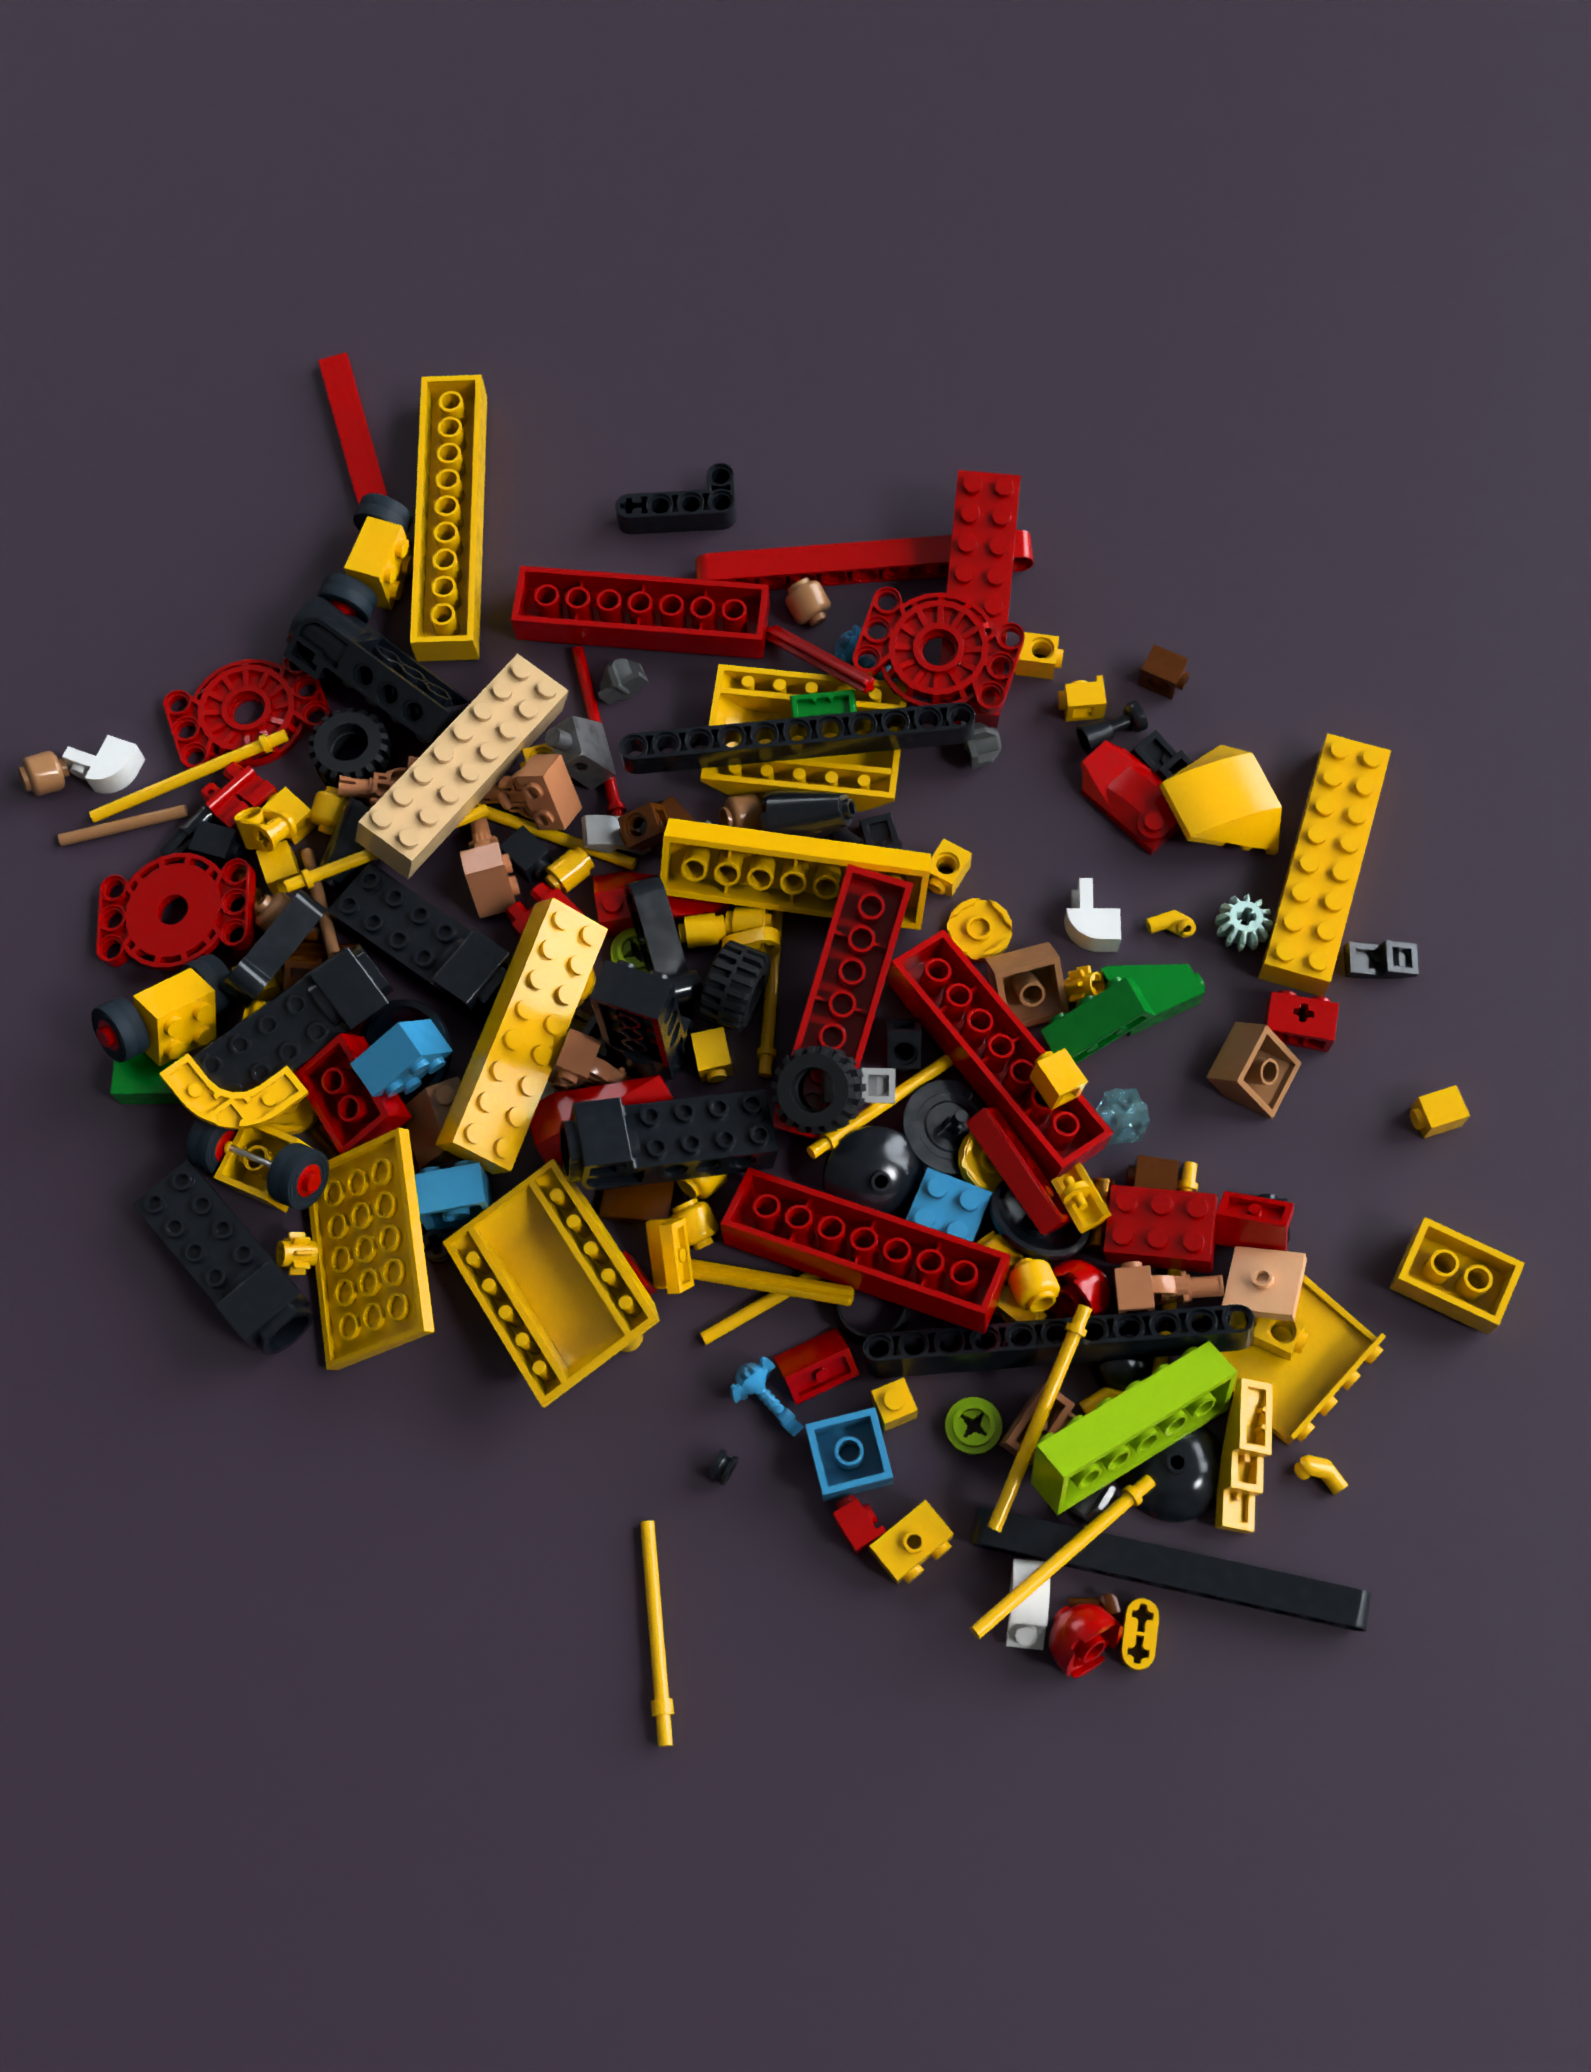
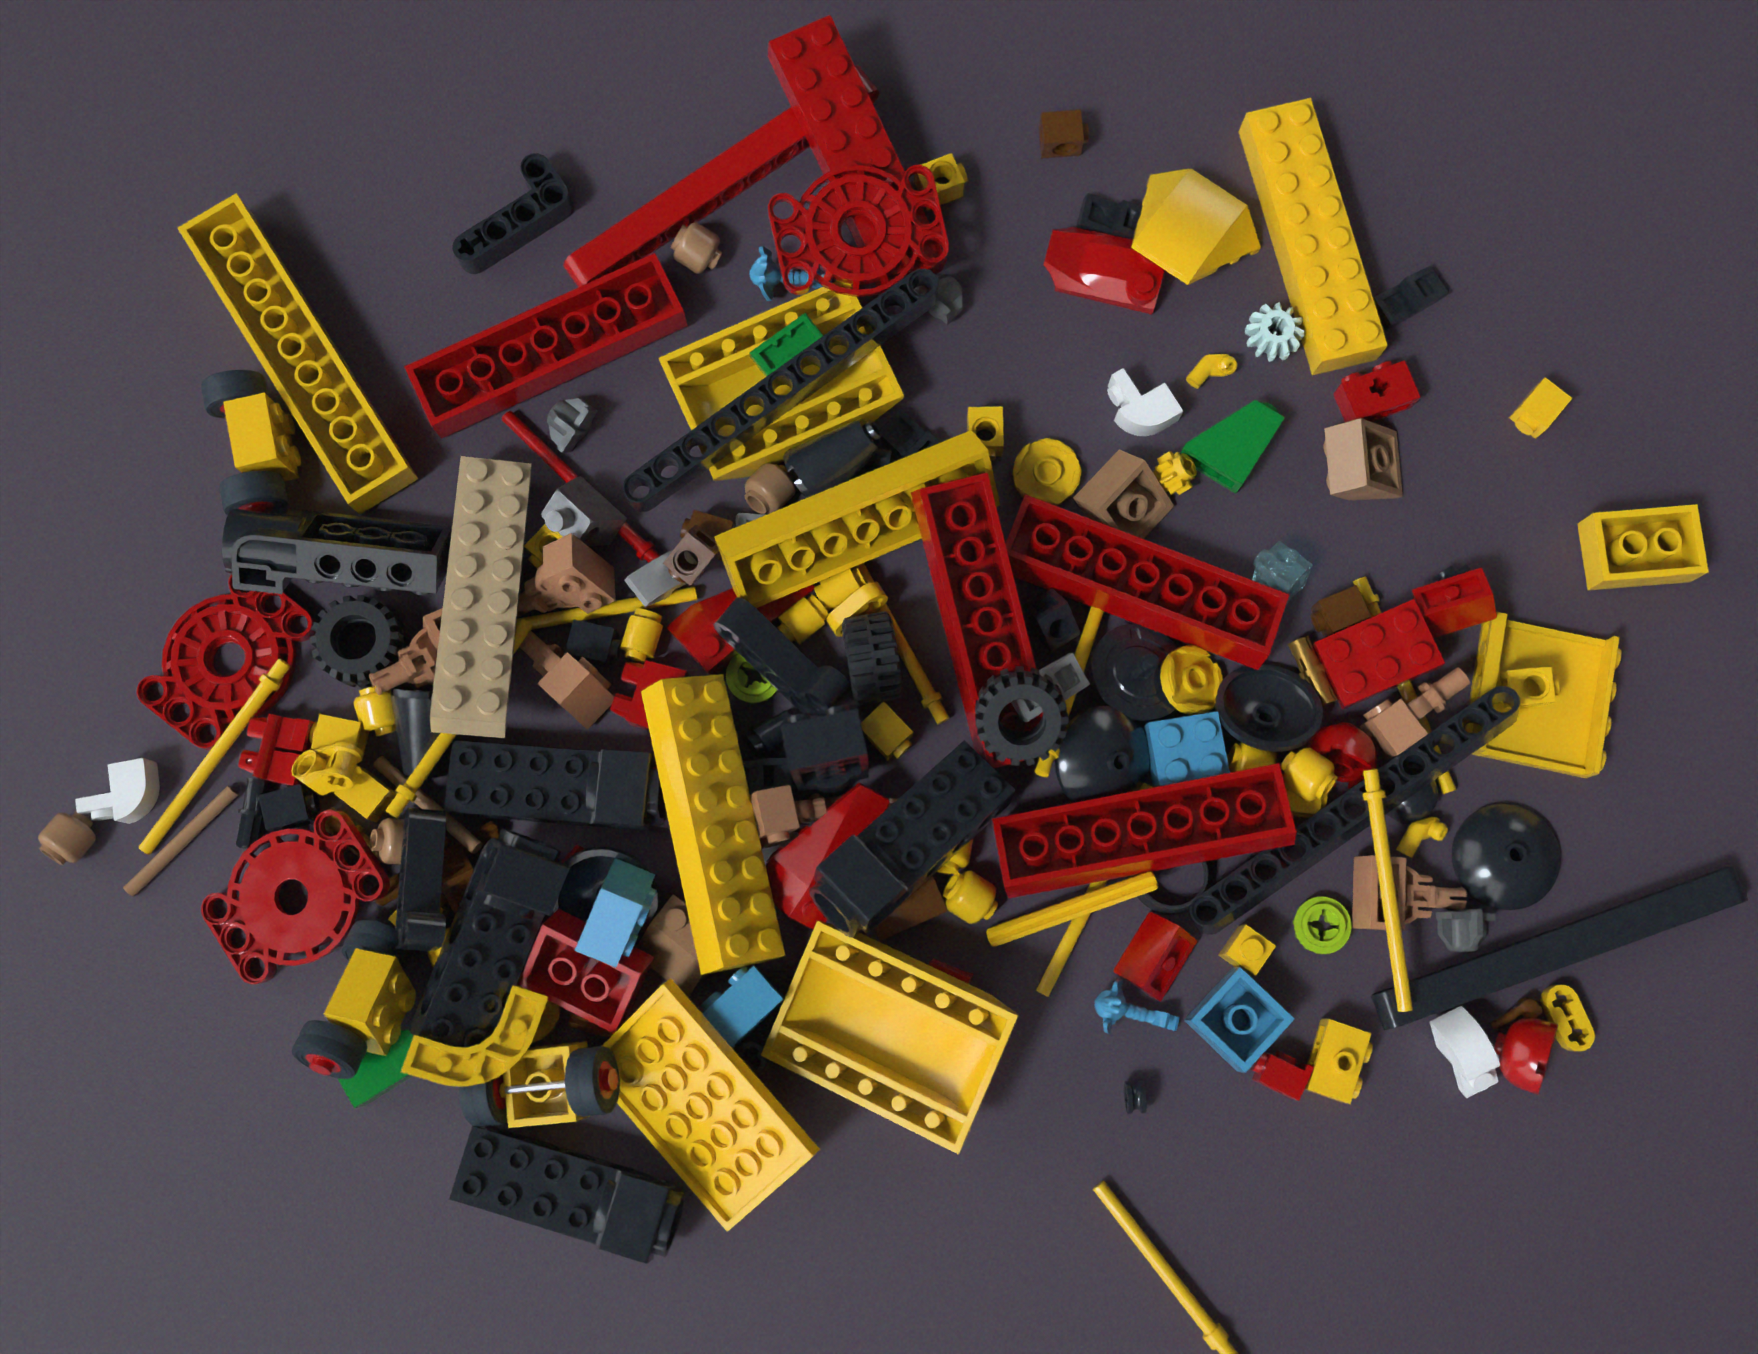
camera: 35 degrees left, 10 degrees up
(296, 1253) = (630, 1145): yellow gear -> none
(352, 426) = (138, 316): red tile -> none
(670, 1254) = (970, 939): yellow panel -> none
(820, 659) = (750, 299): red axle -> none
(1019, 1170) = (1229, 678): red slope -> none
(1057, 1078) = (1216, 575): yellow brick -> none
(1081, 1198) = (1297, 671): yellow hips -> none
(1083, 700) = (1006, 201): yellow brick -> none
(1095, 733) = (1039, 226): black piece -> none
(1098, 1020) = (1210, 500): green brick -> none
(1130, 1497) = (1496, 908): yellow bar -> none
(1132, 1426) = (1468, 849): lime brick -> none
(1243, 1452) = (1558, 802): yellow slope -> none
(1266, 1282) = (1497, 652): light nougat plate -> none
(1320, 1468) = (1629, 782): yellow arm -> none

